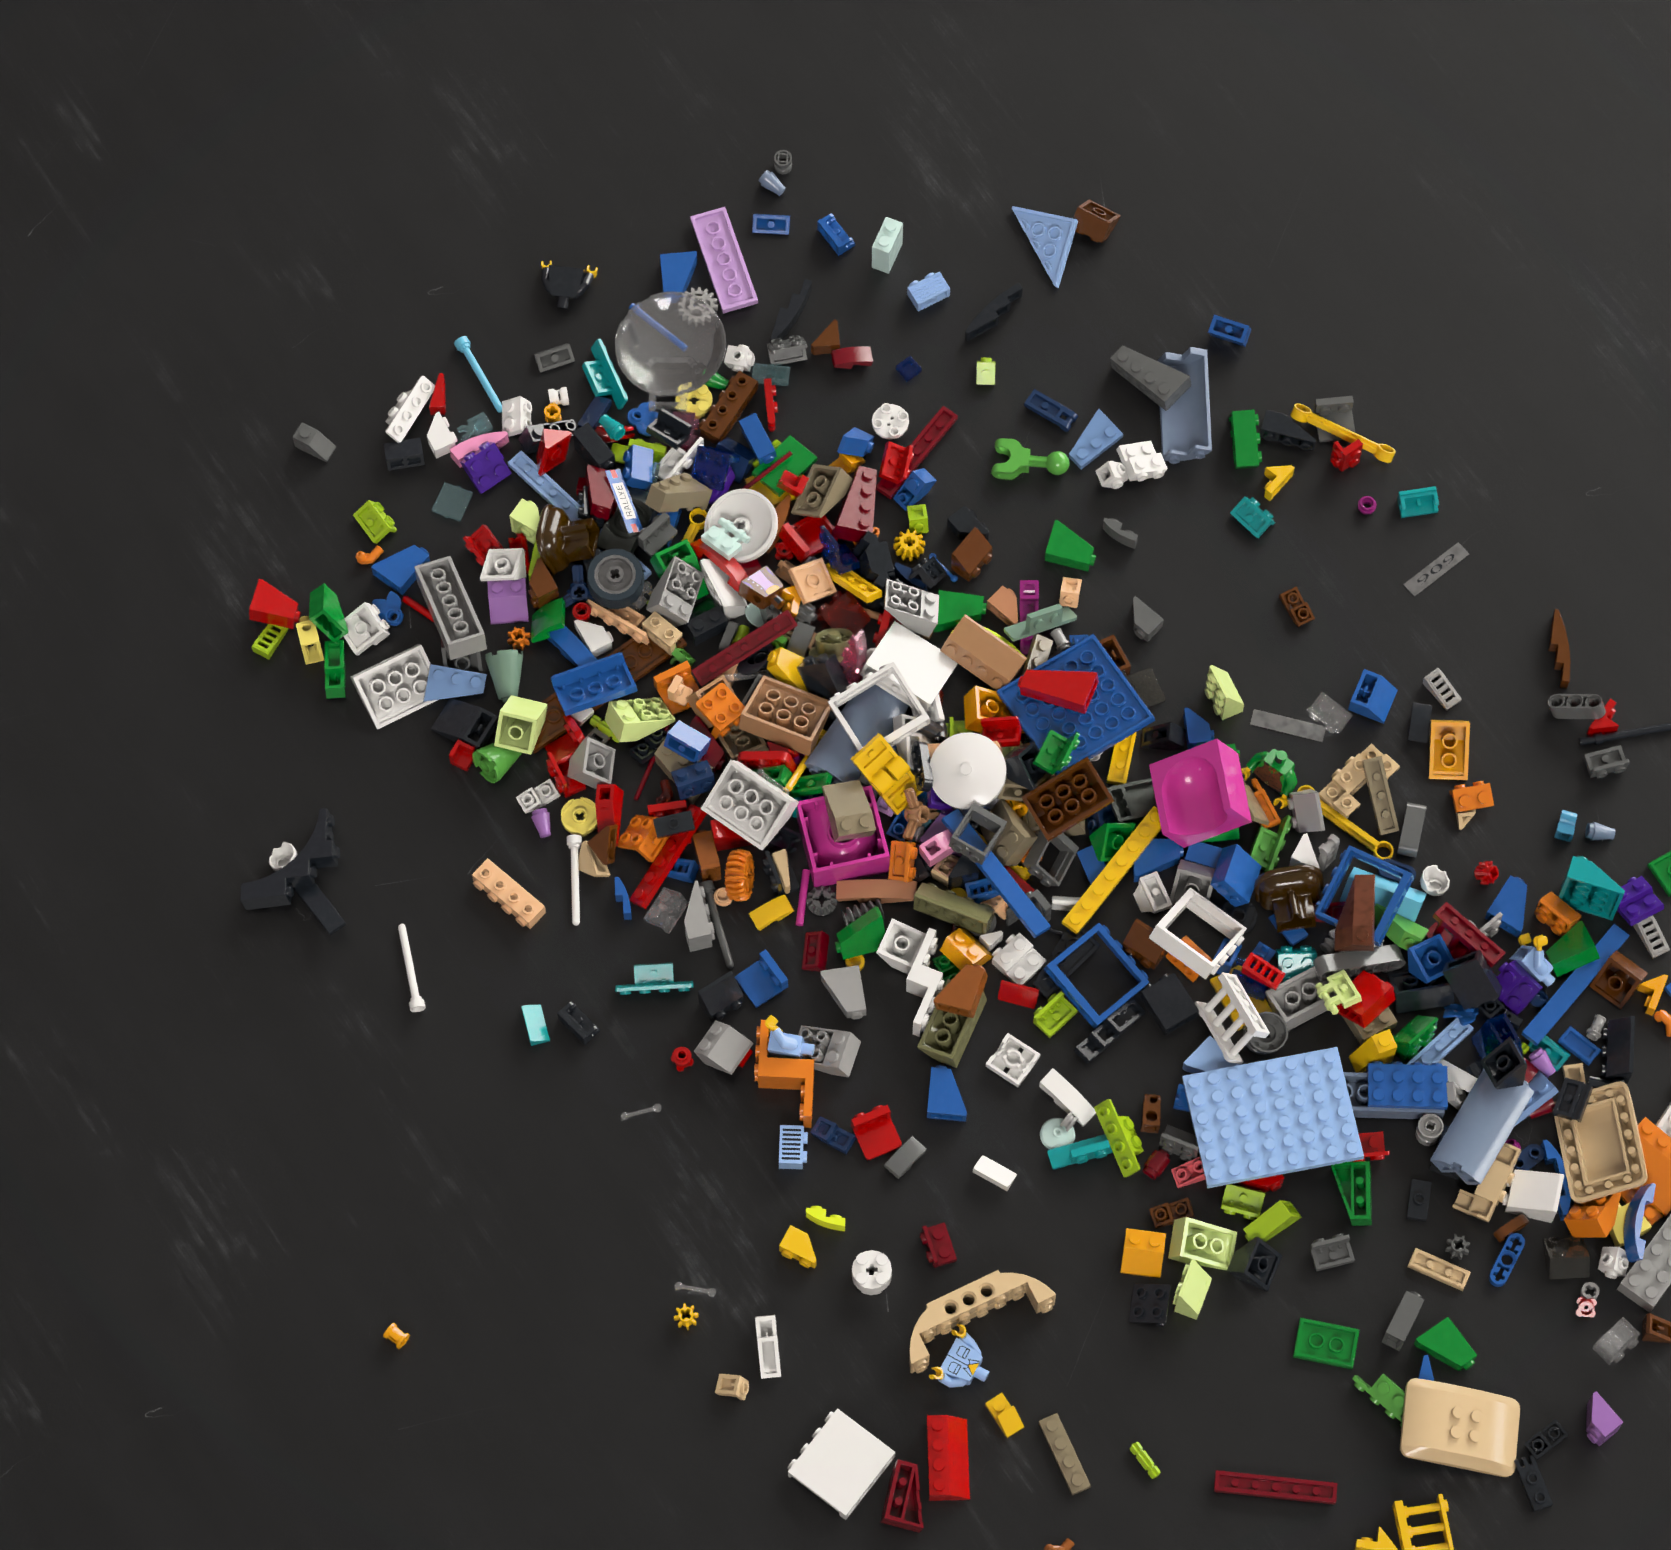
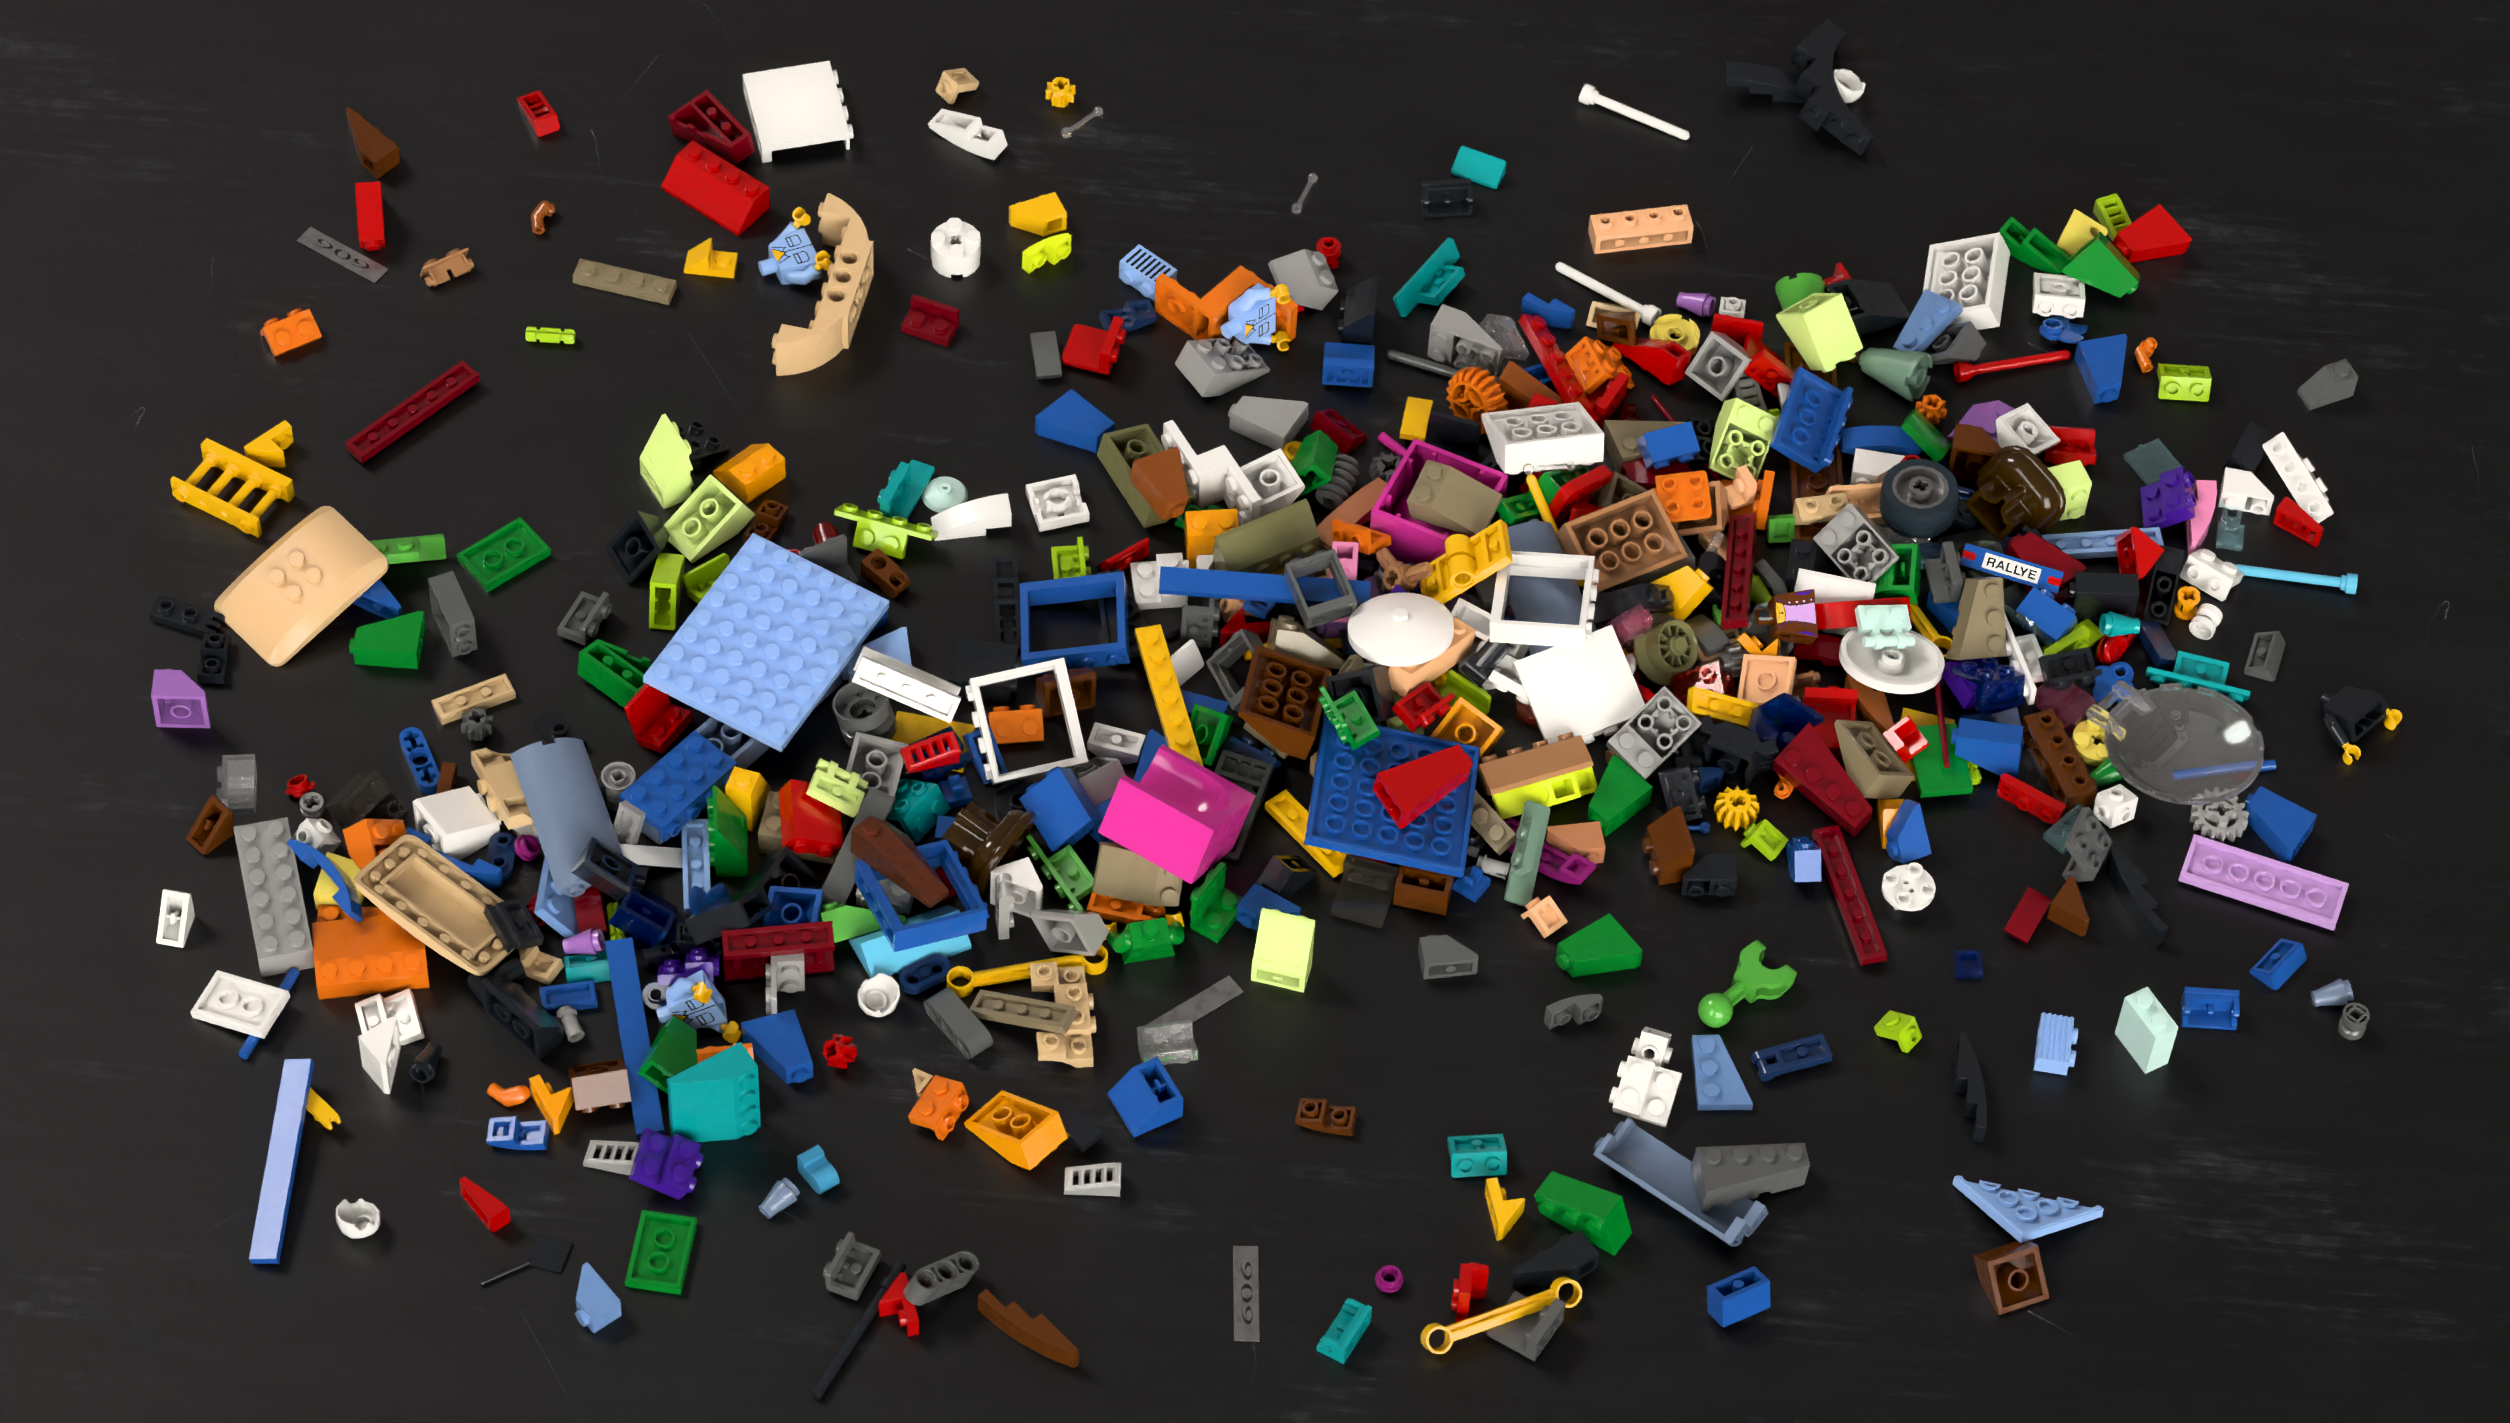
camera: 125 degrees right, 15 degrees down
(450, 607) = (2012, 354): light grey brick -> none
(674, 824) = (1583, 376): black plate -> none
(693, 779) = (1622, 422): dark blue bracket -> none
(781, 864) = (1449, 440): tan slope -> none
(896, 462) = (1850, 850): red bracket -> none
(922, 766) = (1455, 607): black beam -> none
(994, 1173) = (956, 412): white slope -> none
(1069, 1121) = (944, 499): light grey bush -> none

